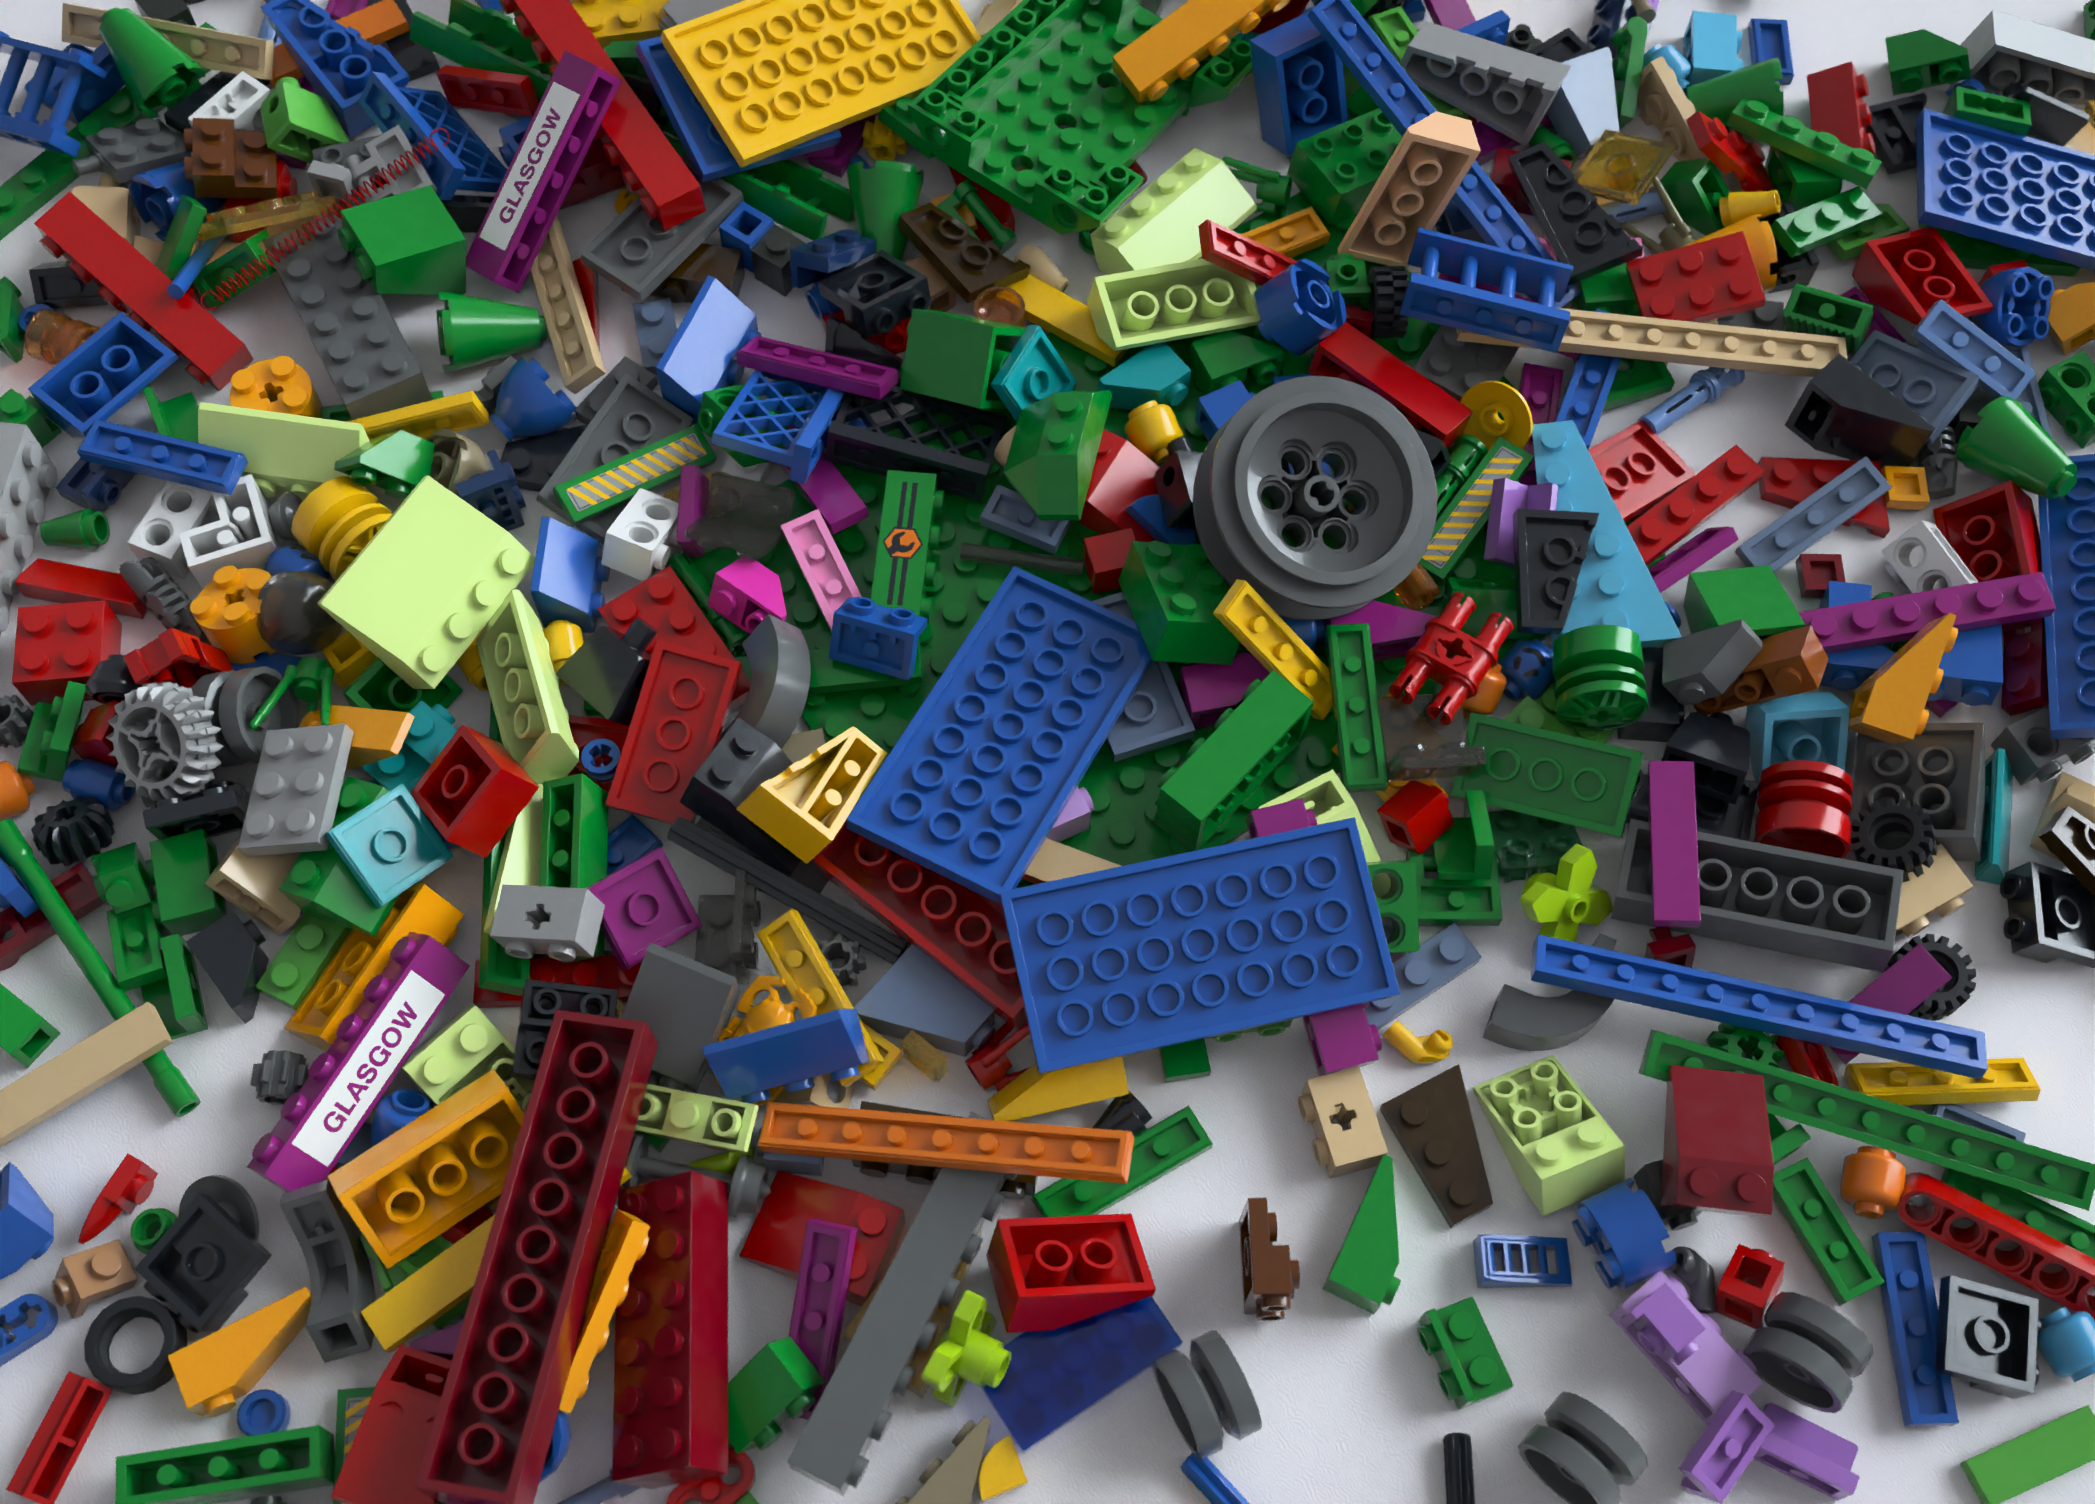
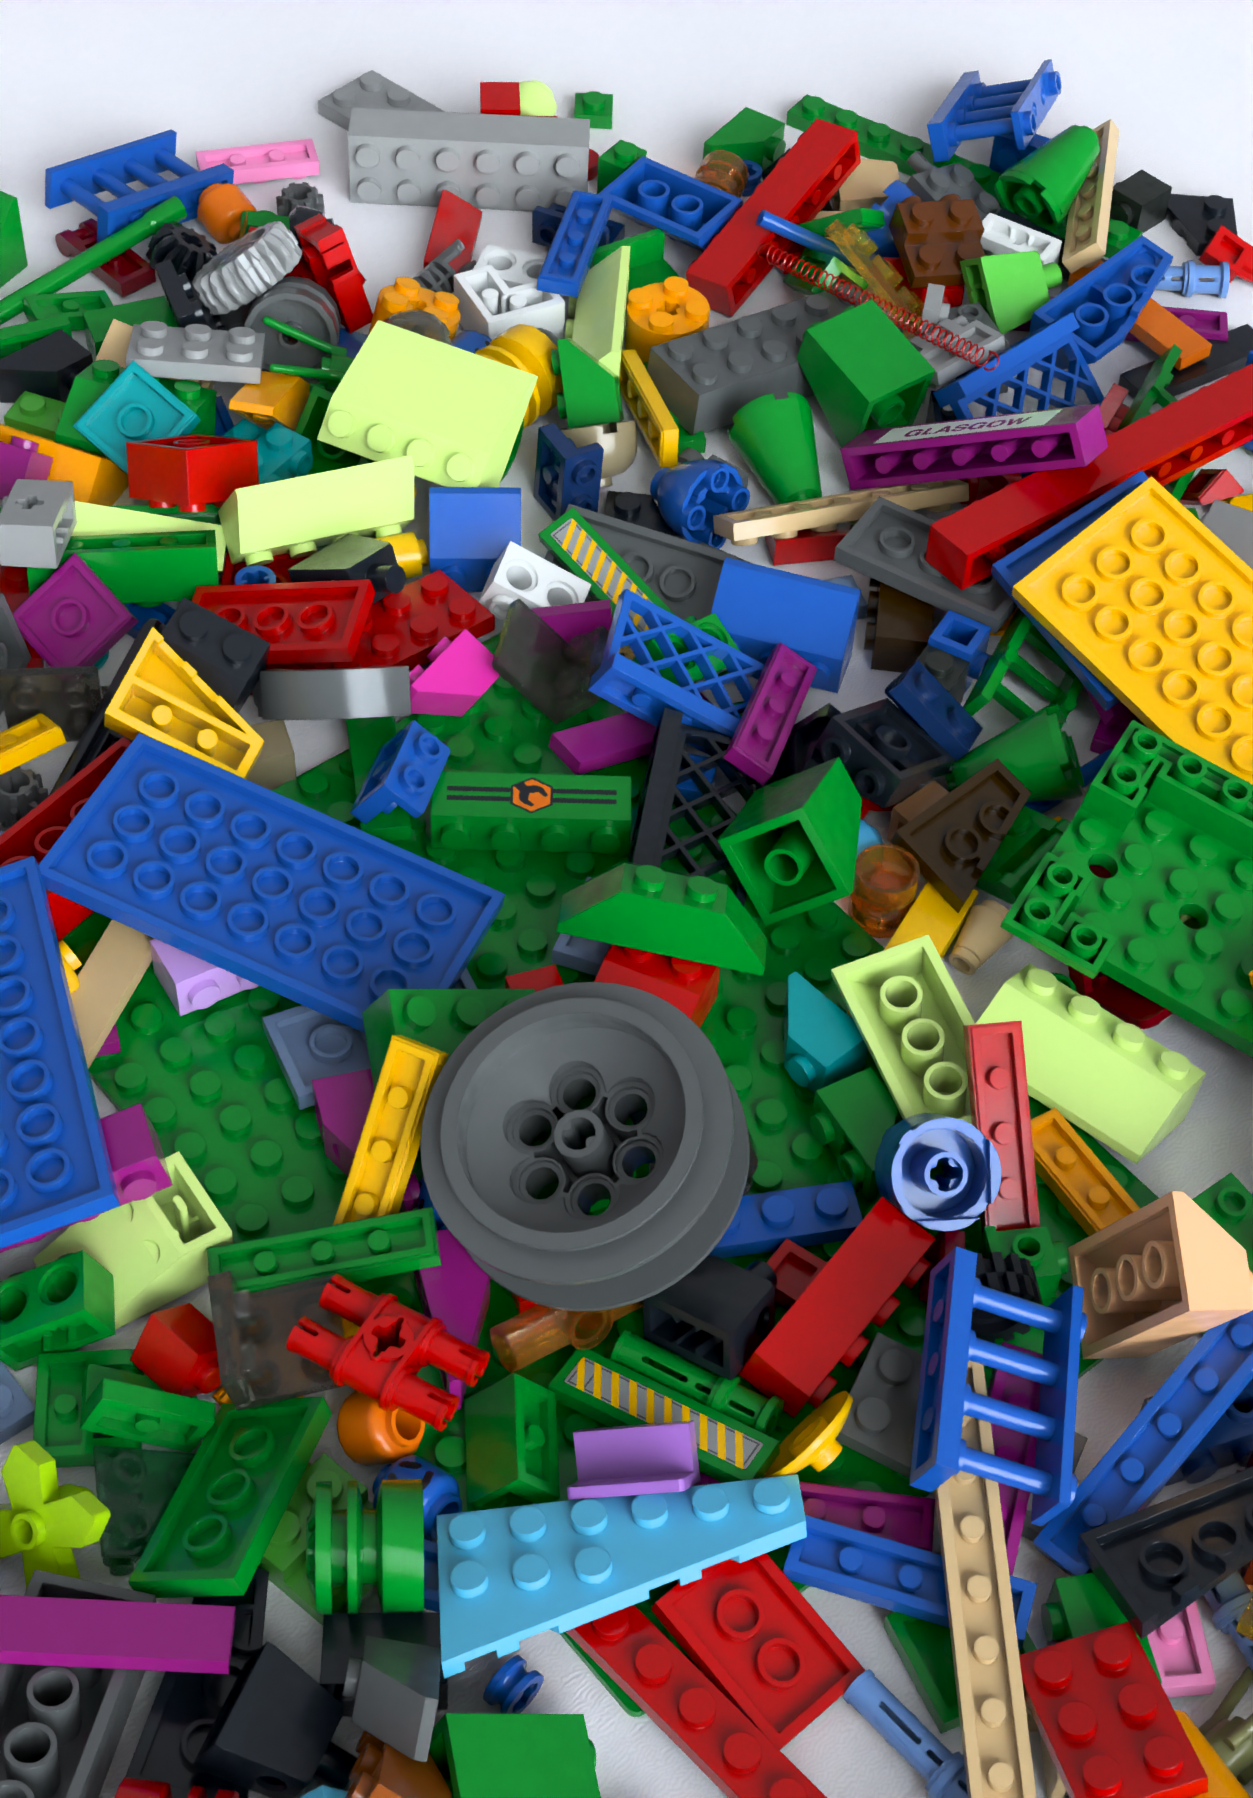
camera: 85 degrees right, 15 degrees down
(62, 646) = (378, 229): red brick -> none
(78, 530) = (511, 226): green cone -> none
(122, 878) = (128, 283): green brick -> none
(820, 562) = (508, 738): bright pink plate -> none
(1022, 559) = (543, 918): clear smoke bar -> none
(1031, 372) = (789, 904): teal tile -> none
(1152, 429) = (742, 1043): yellow head -> none
(1220, 406) = (775, 1118): blue brick -> none
(1232, 761) = (242, 1122): green brick -> none
(1271, 186) = (1172, 1169): green plant -> none
(1547, 565) = (546, 1478): black wing -> none
(1691, 556) = (607, 1712): magenta tile -> none

